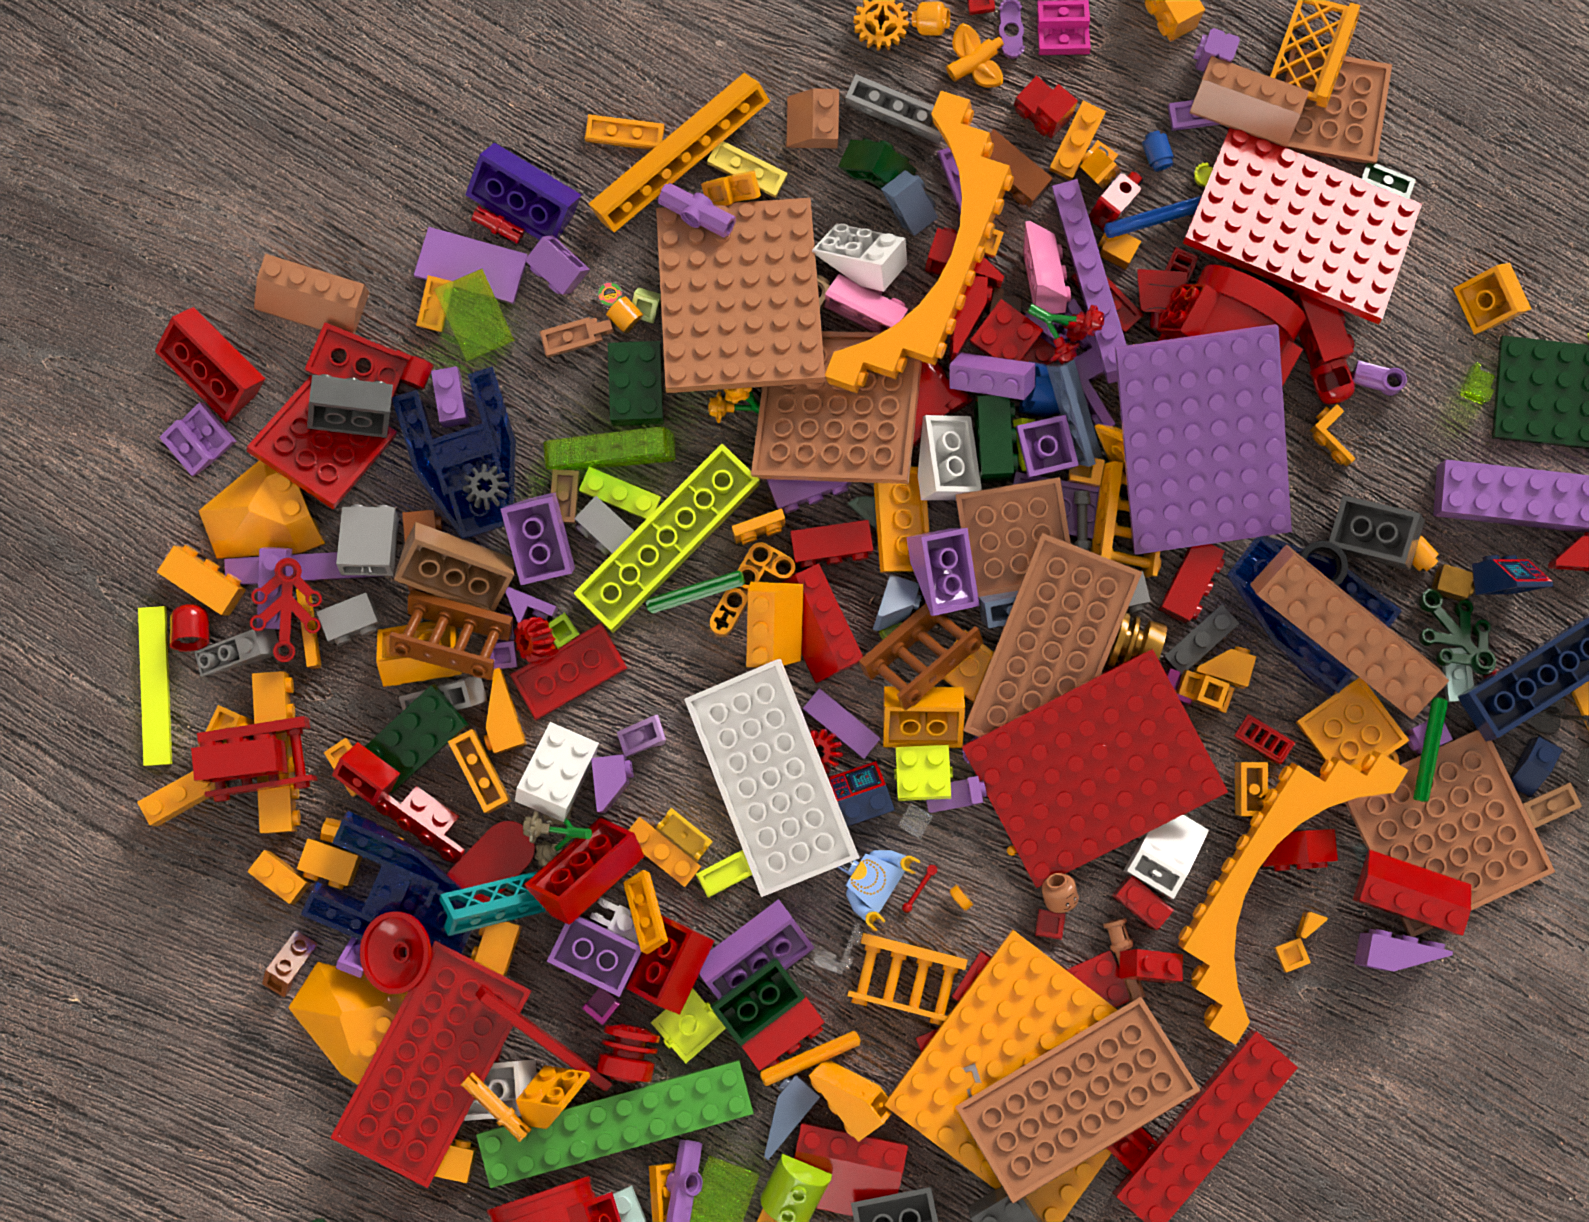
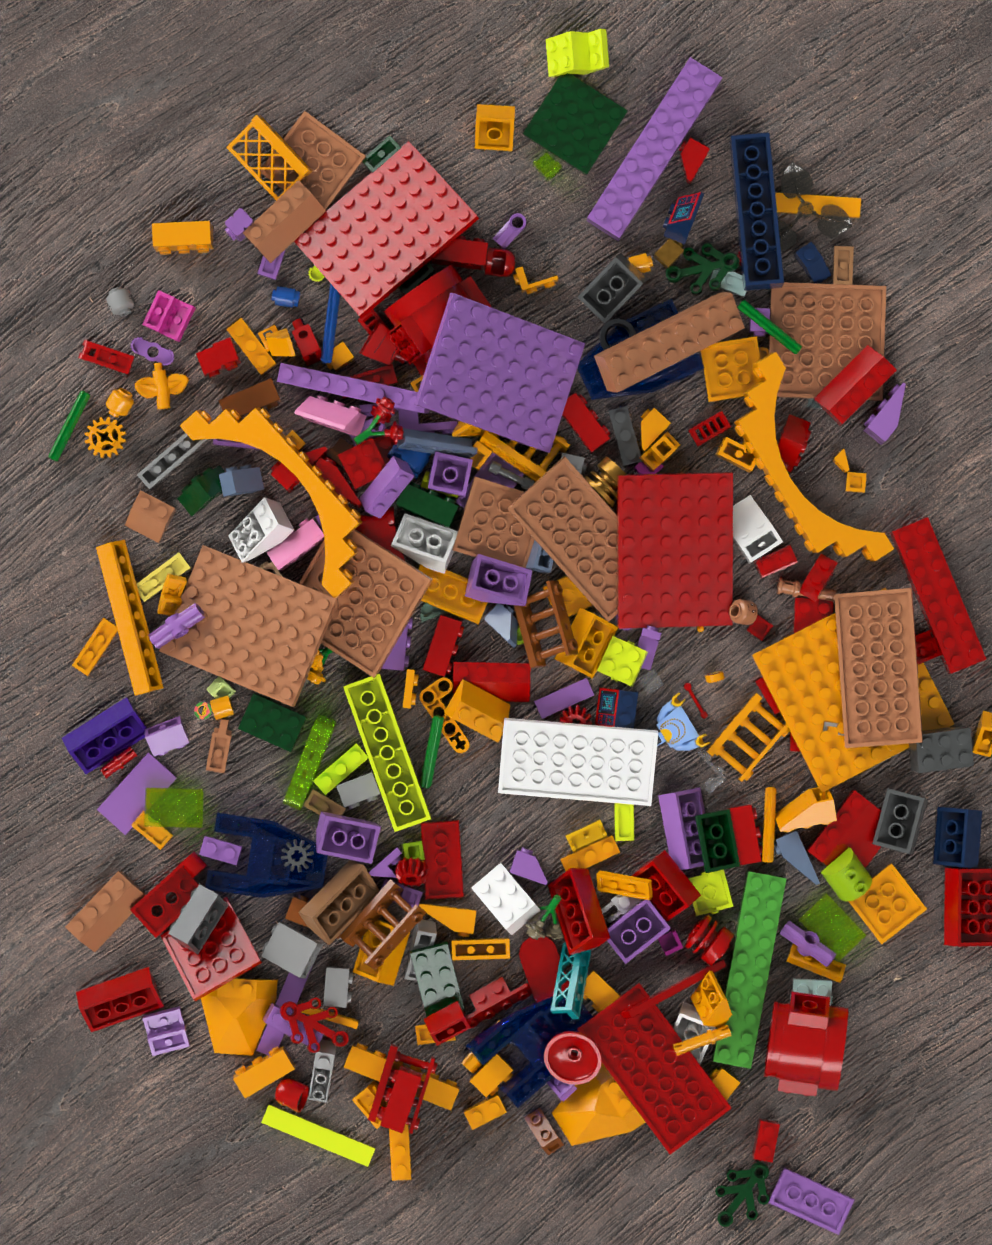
camera: 65 degrees left, 5 degrees up
(641, 736) = (509, 832): lavender slope -> none

